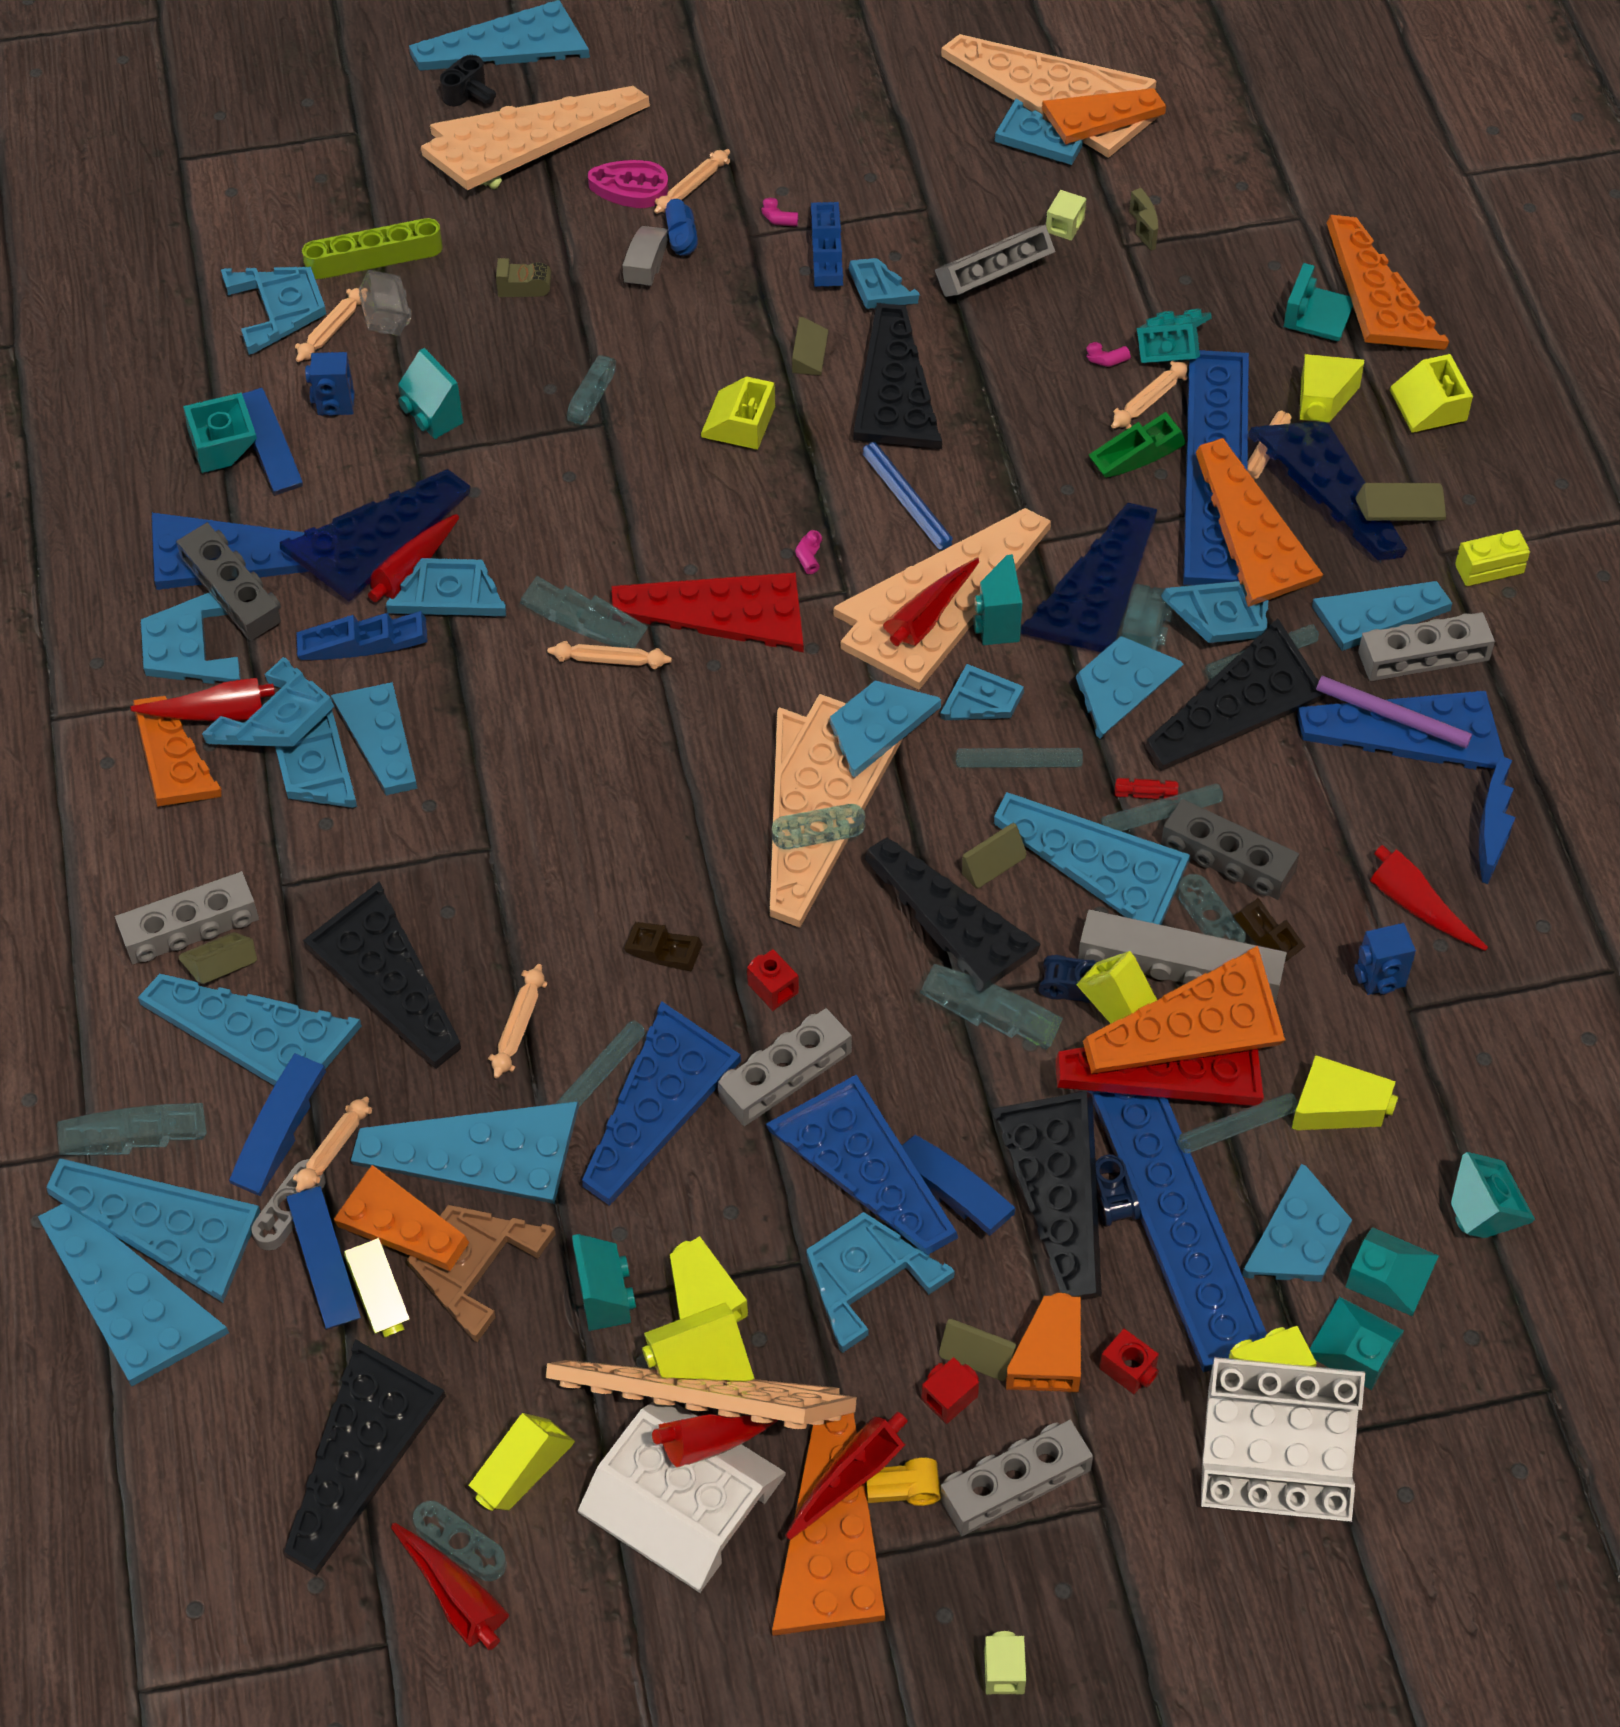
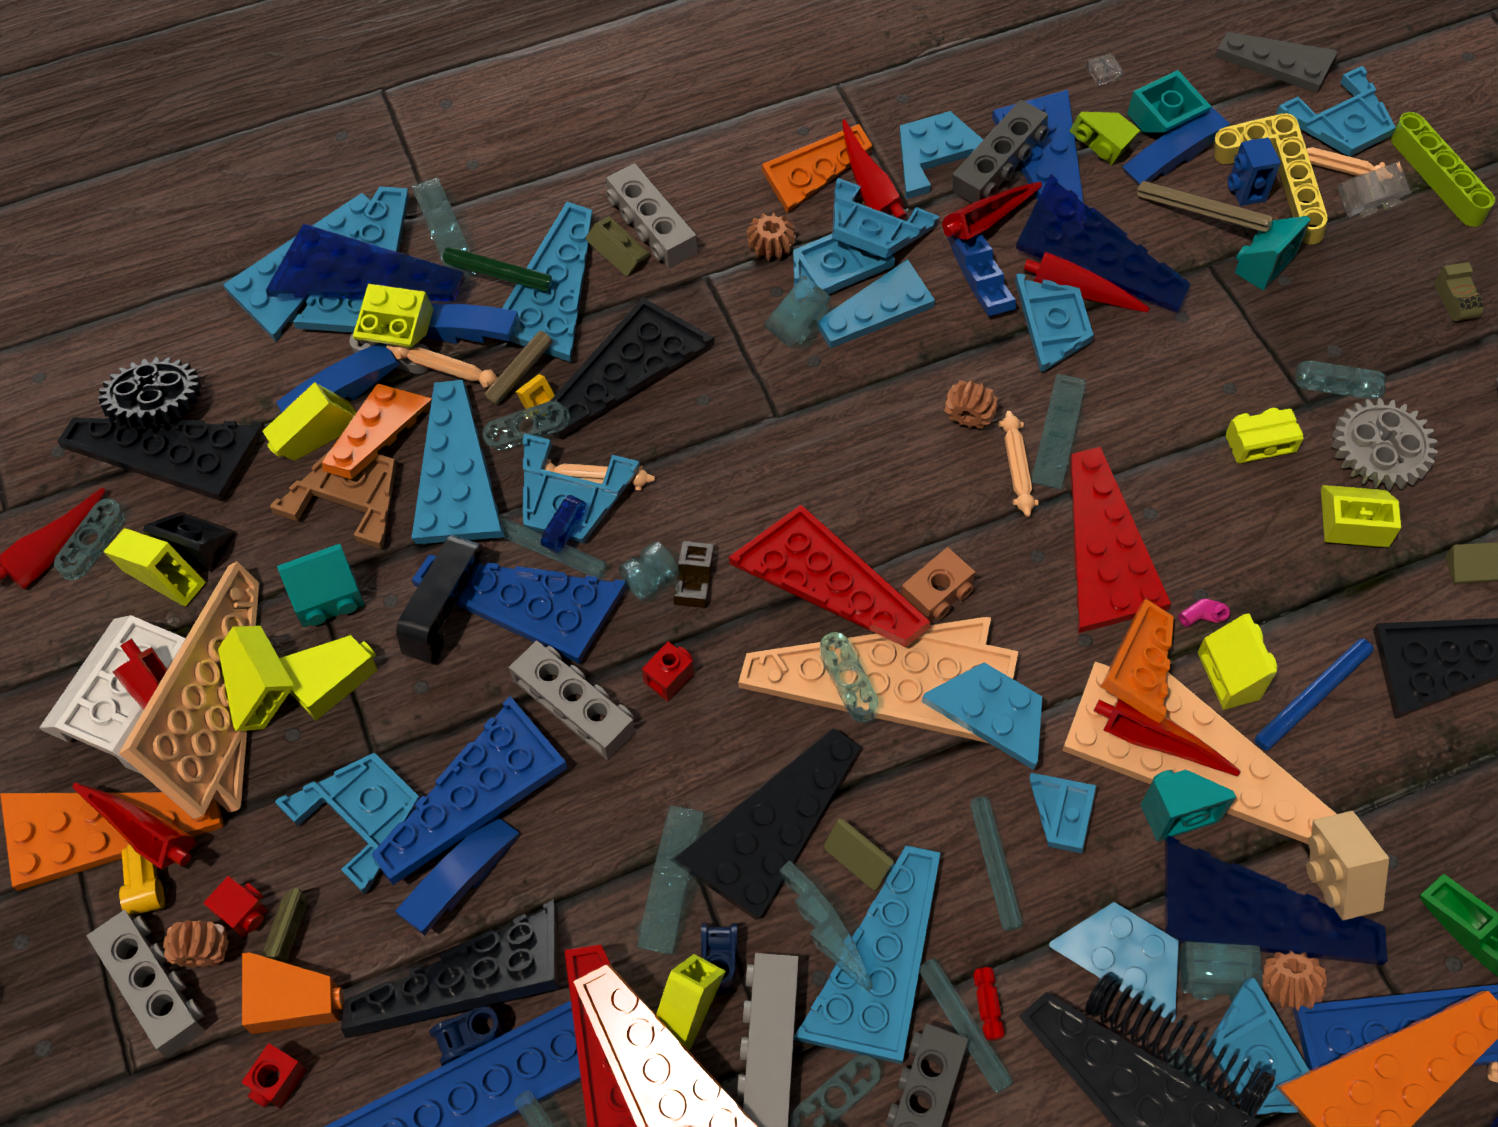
camera: 80 degrees right, 5 degrees up
(132, 476) = (1104, 69): none -> clear tile
(165, 1229) = (343, 268): none -> clear blue wing
(179, 331) = (1286, 61): none -> dark grey wing
(219, 1073) = (497, 269): none -> dark green axle
(233, 491) = (1105, 133): none -> lime slope
(258, 809) = (771, 236): none -> nougat gear
(260, 1483) = (149, 392): none -> black gear
(266, 1176) = (393, 316): none -> neon yellow slope
(303, 622) = (984, 213): none -> red piece
(309, 342) = (1290, 167): none -> light yellow beam
(358, 435) = (1205, 206): none -> dark tan axle
(361, 1071) = (518, 367): none -> dark tan axle
(375, 797) = (797, 311): none -> clear light blue brick
(403, 1059) = (535, 392): none -> yellow tile
(435, 1044) = (513, 421): none -> clear light blue beam
(490, 1421) = (193, 538): none -> black slope
(538, 672) = (971, 404): none -> nougat gear
(550, 1048) = (546, 489): none -> dark azure wing
(586, 1041) = (563, 523): none -> clear blue beam
(636, 460) = (1264, 435): none -> neon yellow brick
(647, 1163) = (436, 597): none -> black beam
(655, 978) = (651, 568): none -> clear light blue wheel
(670, 377) = (1384, 444): none -> light grey gear
(685, 838) = (820, 568): none -> red wing
(734, 743) = (944, 571): none -> nougat brick
(859, 596) = (1142, 662): none -> orange wing
(872, 533) = (1238, 662): none -> neon yellow slope
(987, 1421) = (195, 944): none -> nougat gear
(1073, 878) = (829, 932): none -> clear light blue slope
(1079, 504) = (1347, 865): none -> tan brick
(1150, 693) = (1103, 995): none -> black piece
(1165, 568) = (1294, 980): none -> nougat gear

